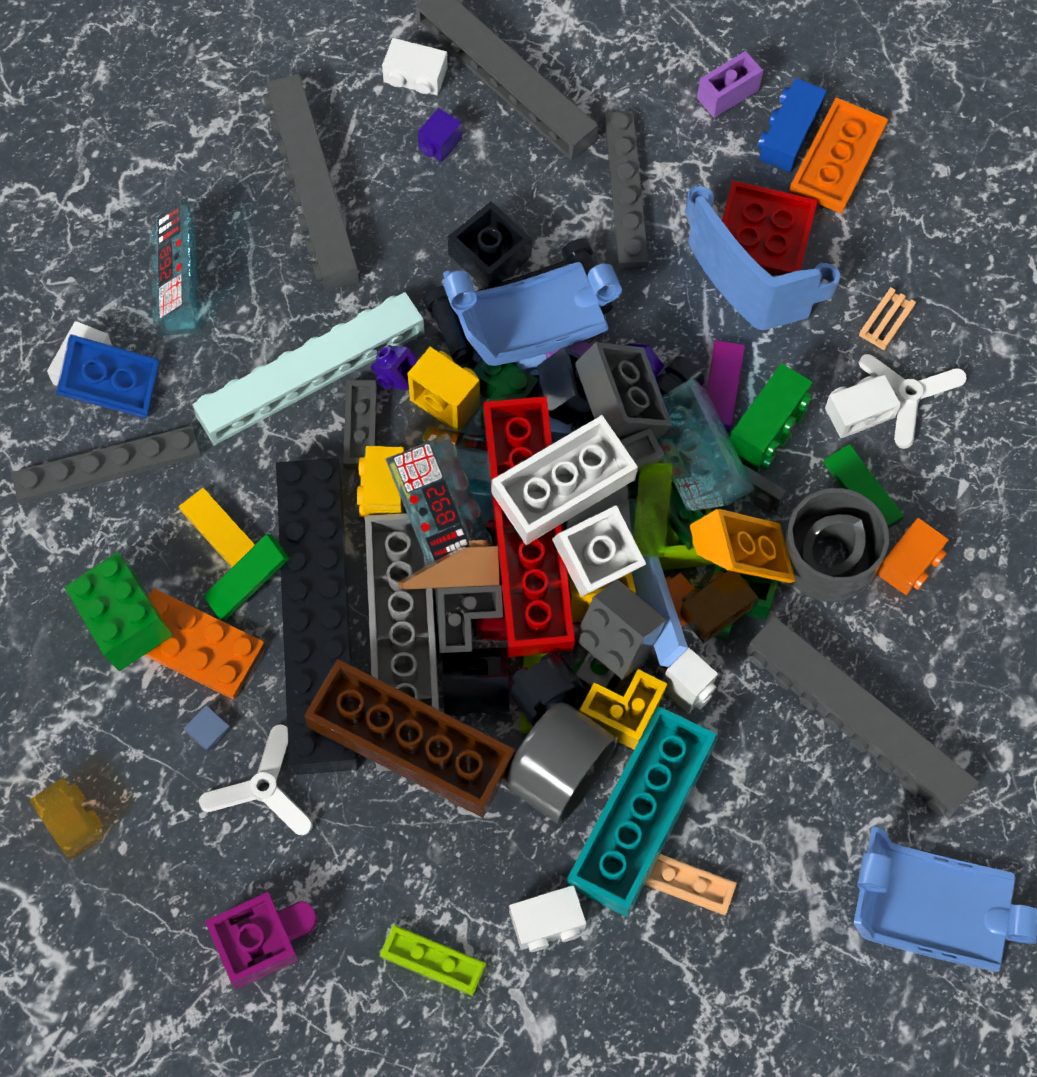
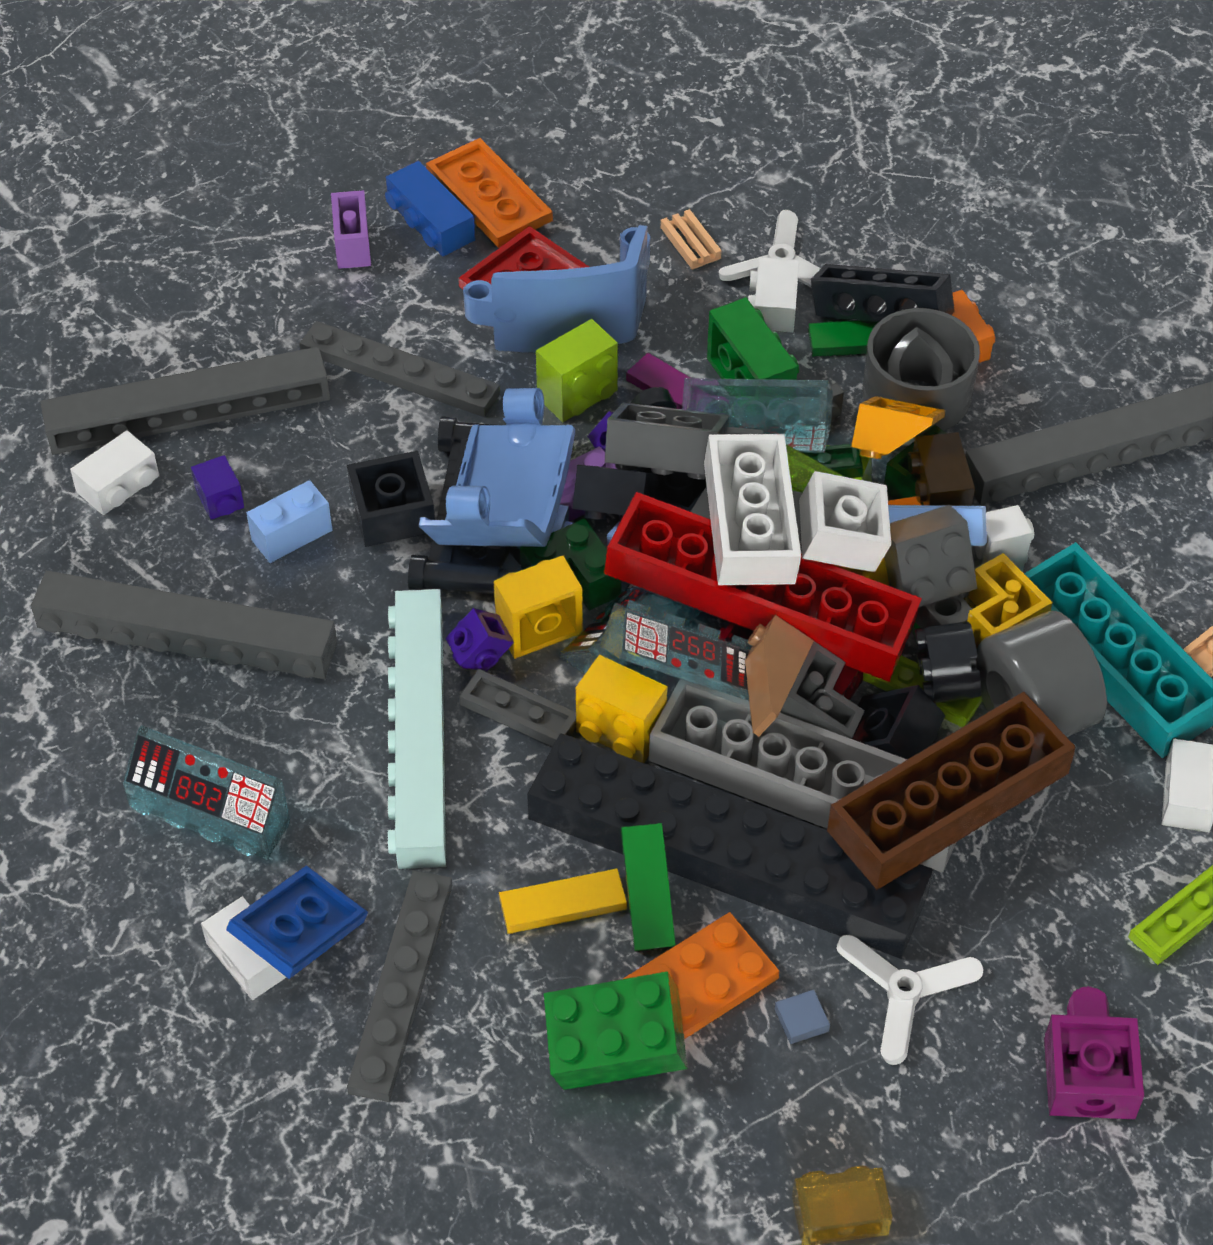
camera: 60 degrees left, 15 degrees down
(434, 195) = (289, 521): none -> light blue brick
(682, 304) = (577, 370): none -> lime brick
(896, 481) = (877, 292): none -> black brick

